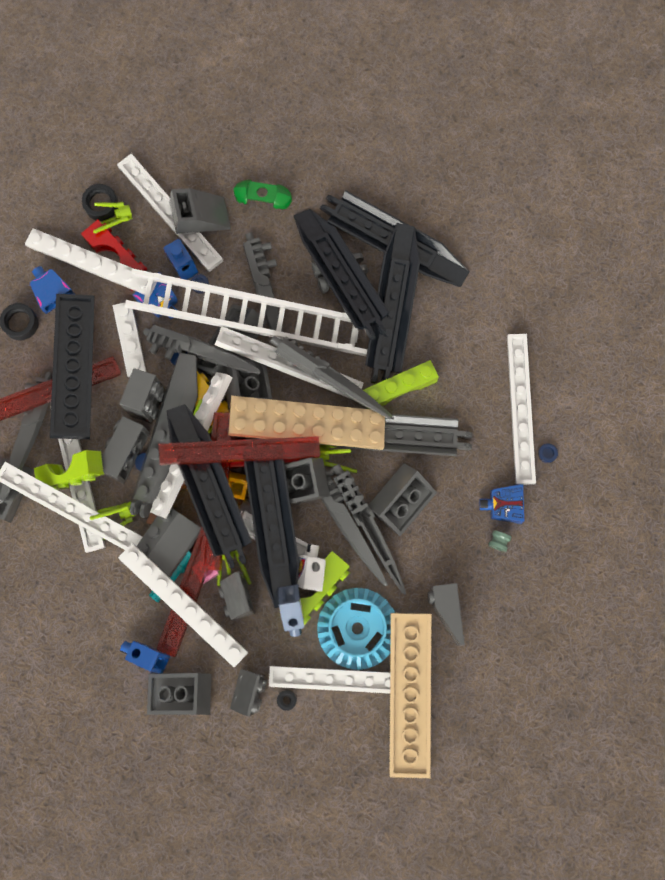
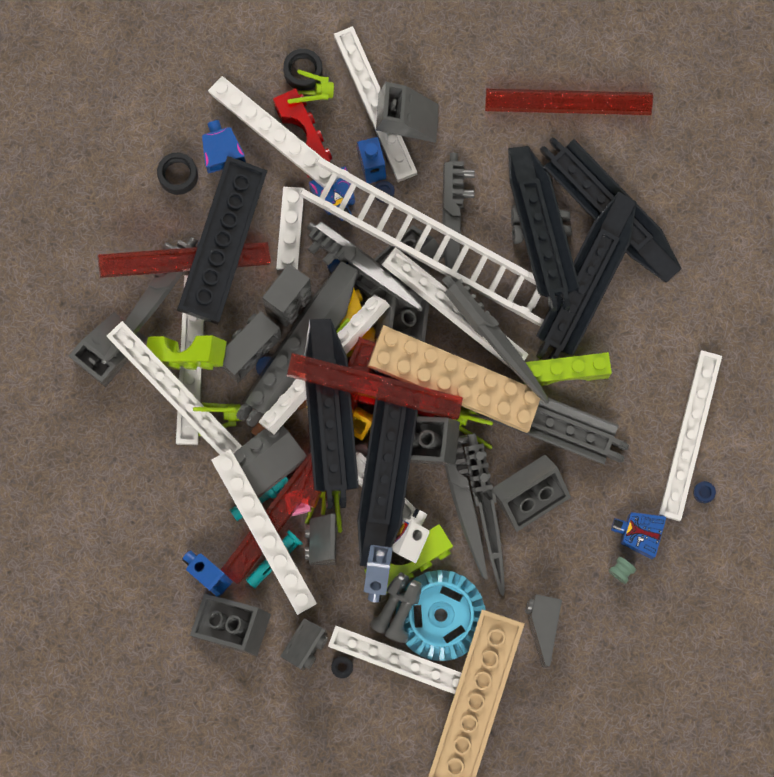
camera: 10 degrees right, 0 degrees up
(193, 638) = (264, 569): none -> teal pin
(277, 194) = (497, 120): green piece -> none
(325, 623) = (397, 592): none -> dark grey piece
(333, 160) = (569, 101): none -> clear red plate

